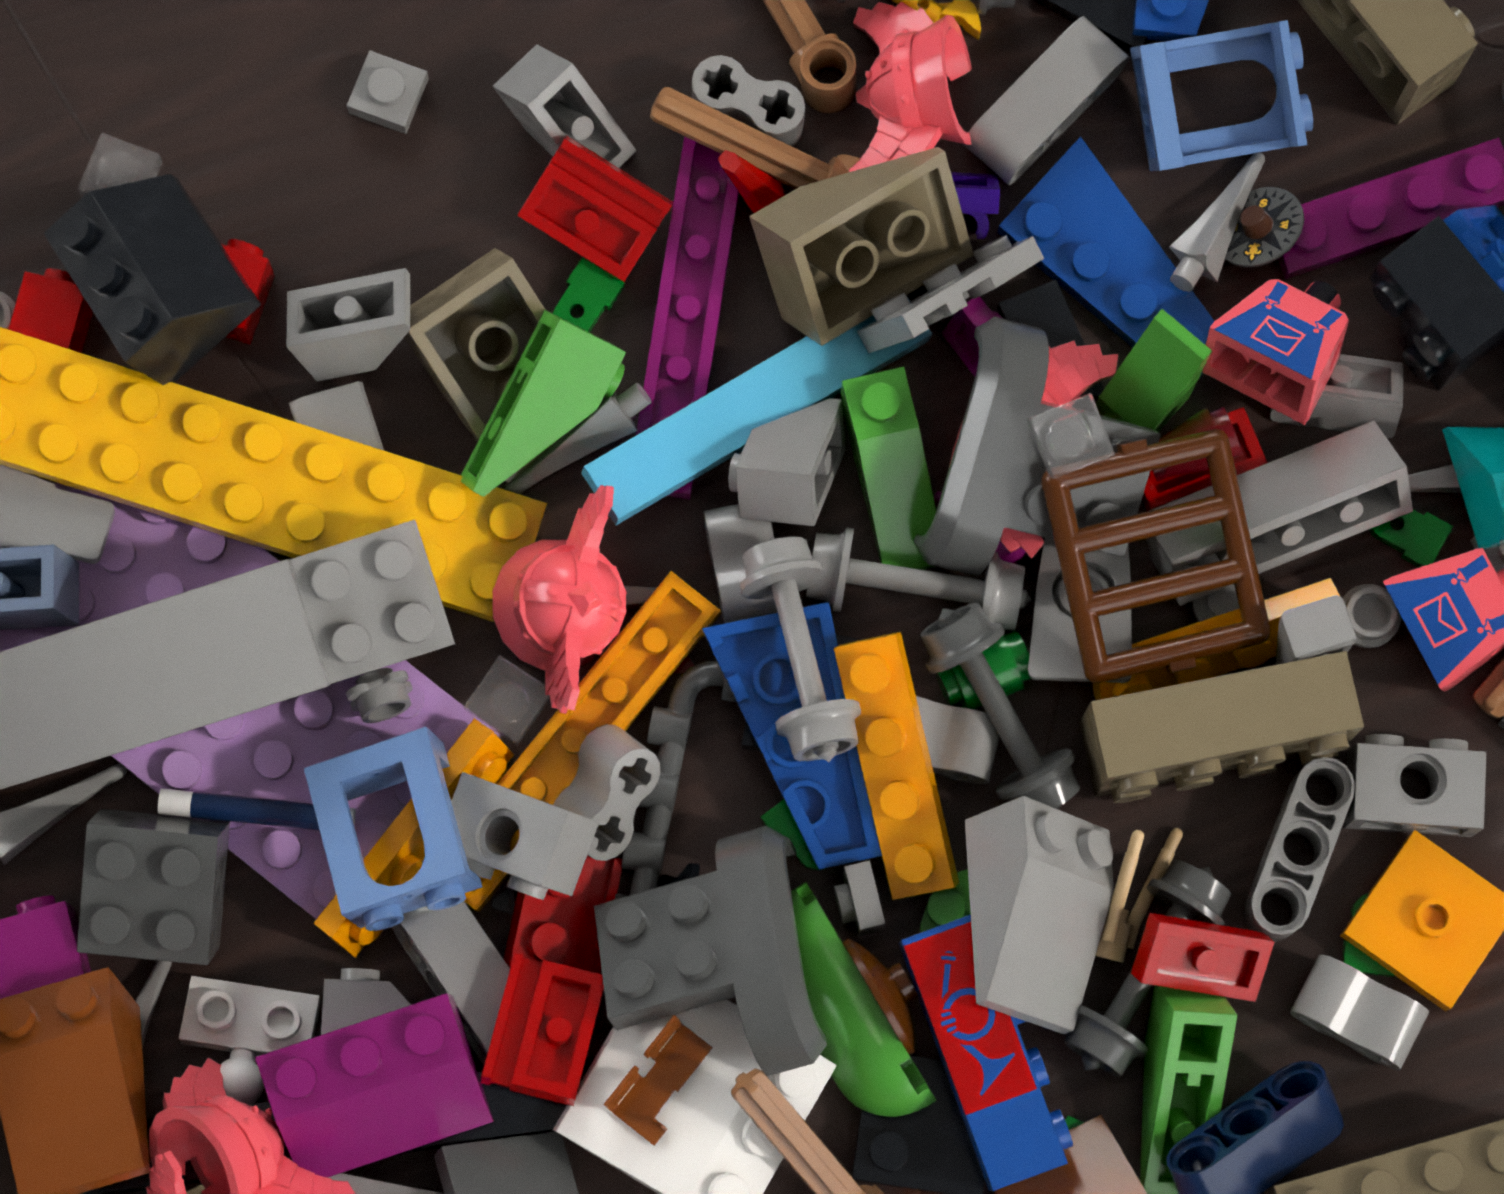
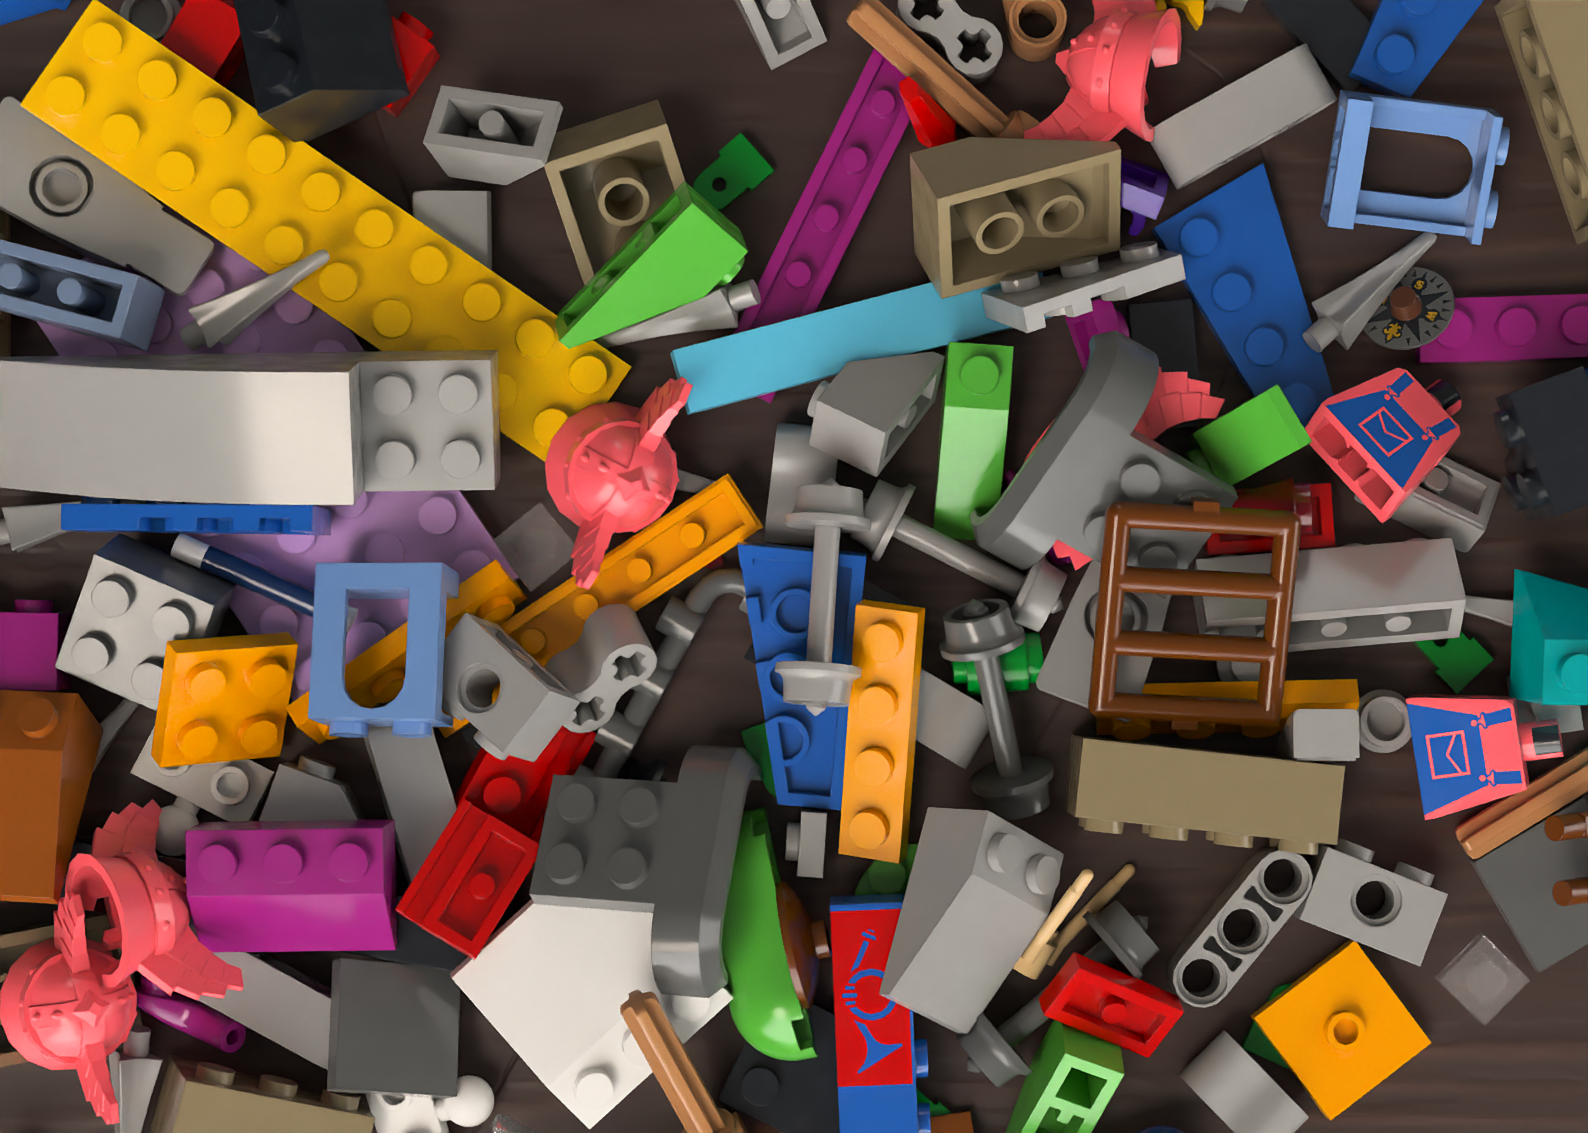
camera: 20 degrees right, 10 degrees up
(148, 564) = (230, 314): none -> light grey piece
(175, 764) = (110, 515): none -> blue wing
(251, 931) = (223, 699): none -> light orange plate
(380, 694) = (412, 511): light grey plate -> none
(595, 208) = (766, 90): red plate -> none
(670, 1072) = (572, 960): dark orange piece -> none
(1070, 436) = (1147, 480): clear plate -> none

